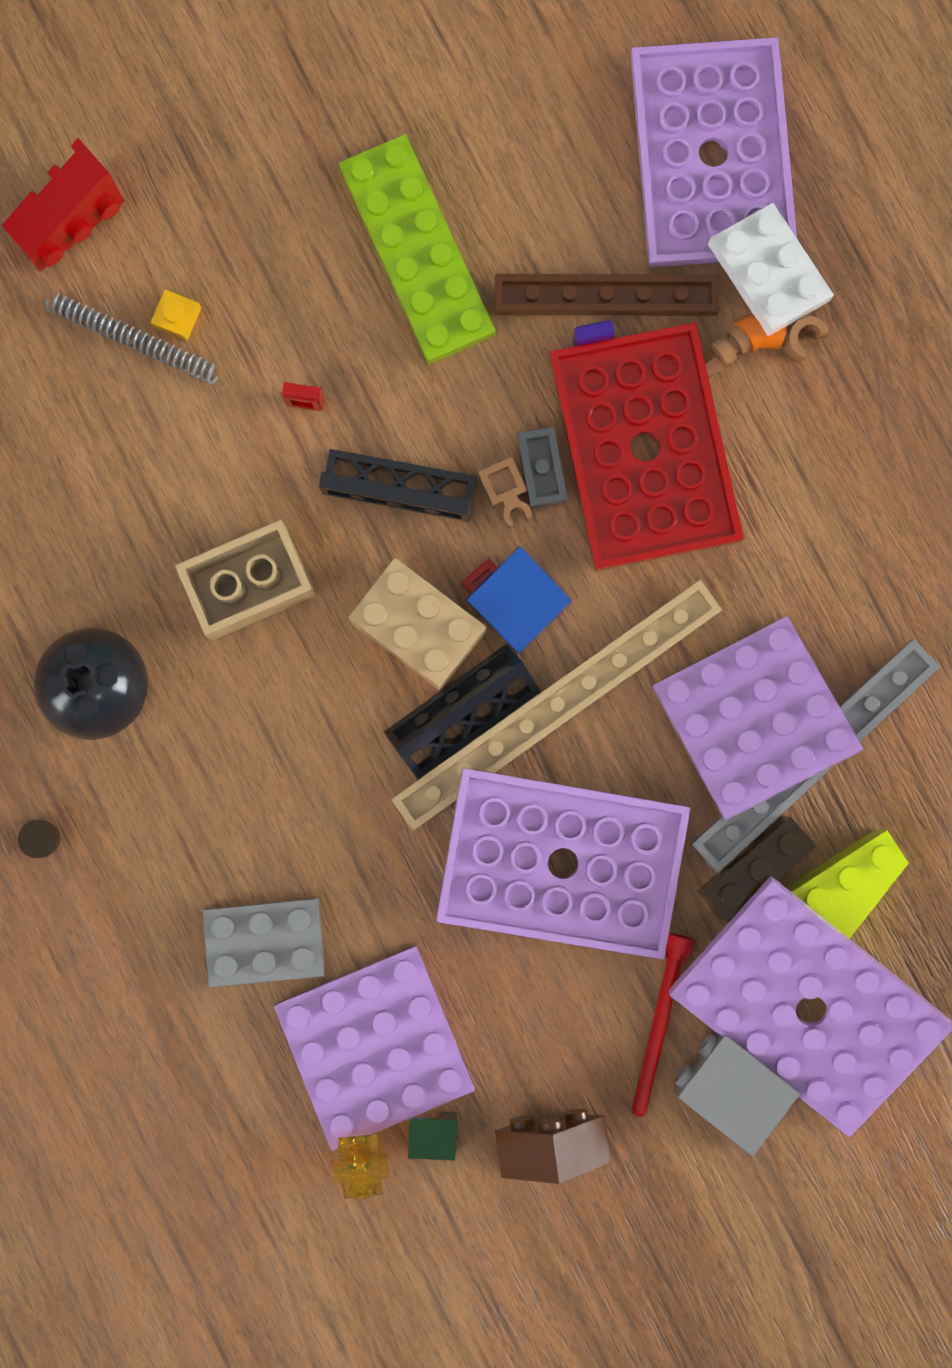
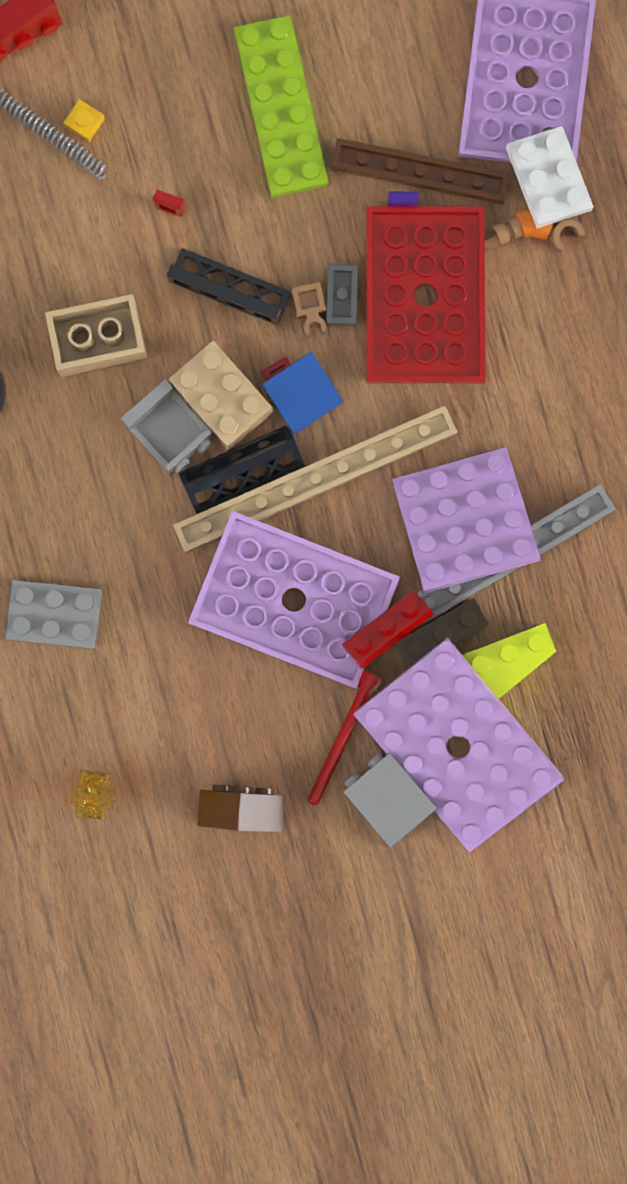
camera: 15 degrees right, 0 degrees up
(360, 678) = (168, 428): none -> light grey panel
(374, 1047) = (121, 710): lavender plate -> none
(433, 1137) = (152, 784): dark green panel -> none
(690, 879) = (387, 629): none -> red plate

